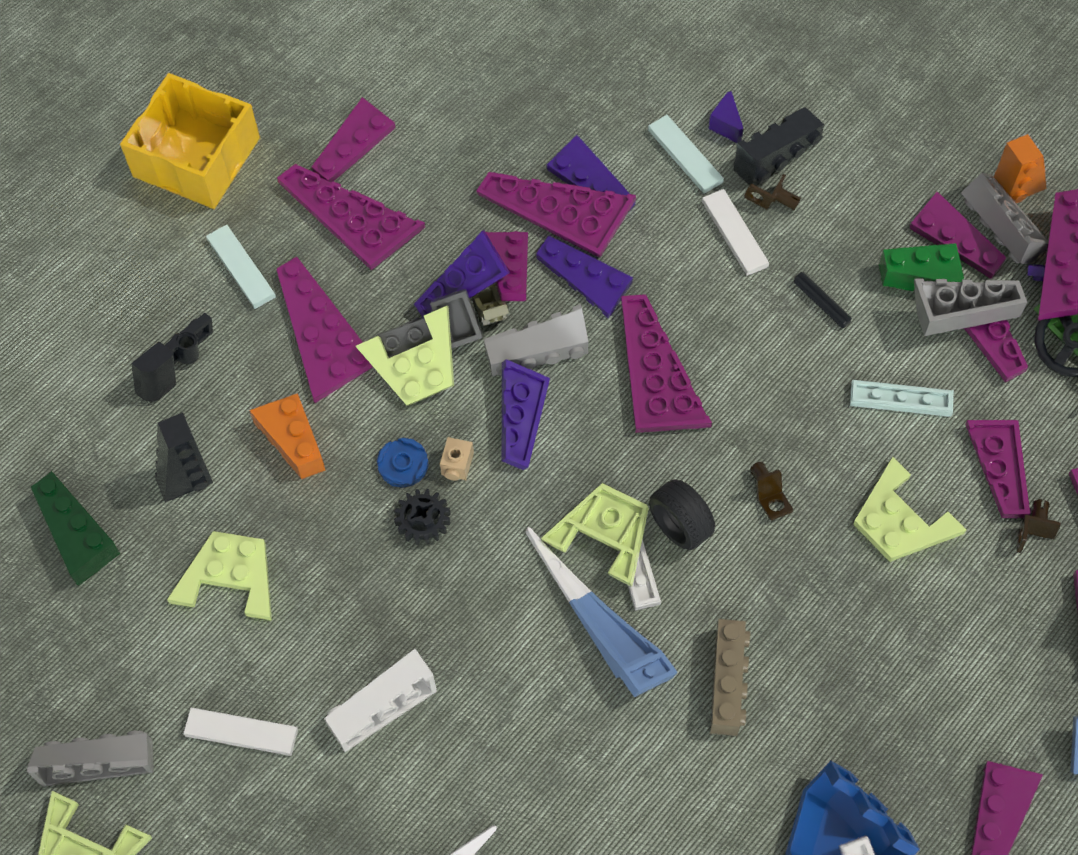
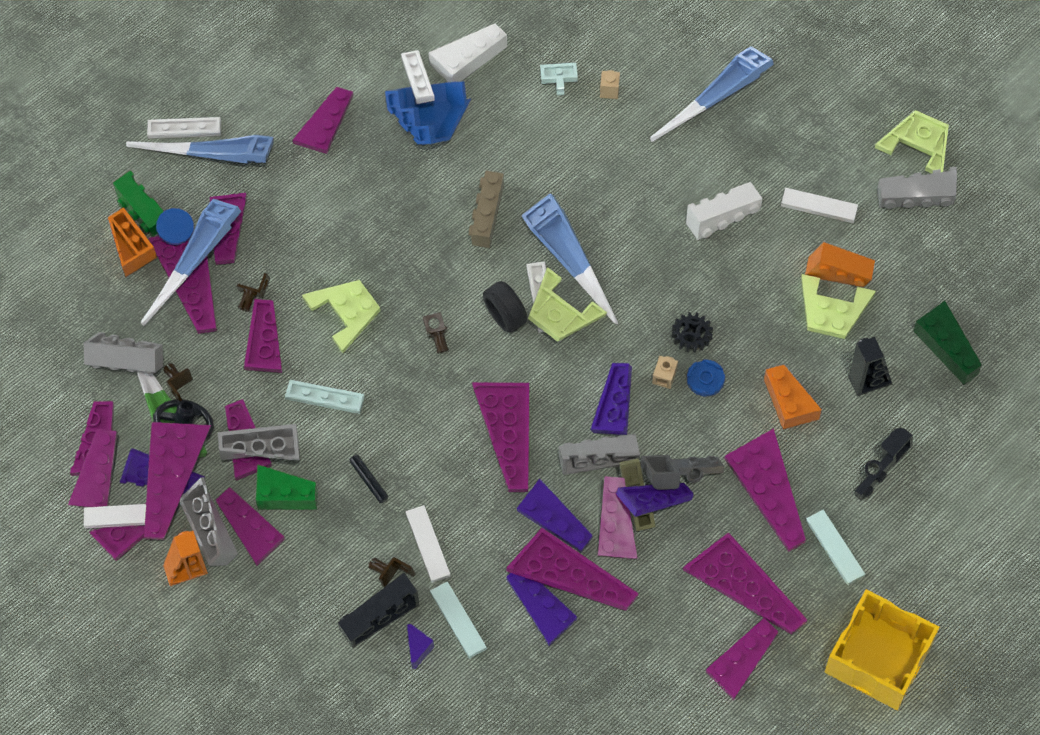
camera: 175 degrees left, 0 degrees up
(215, 623) = (840, 266): none -> orange wedge
(421, 369) = (694, 437): yellowish green wing -> none

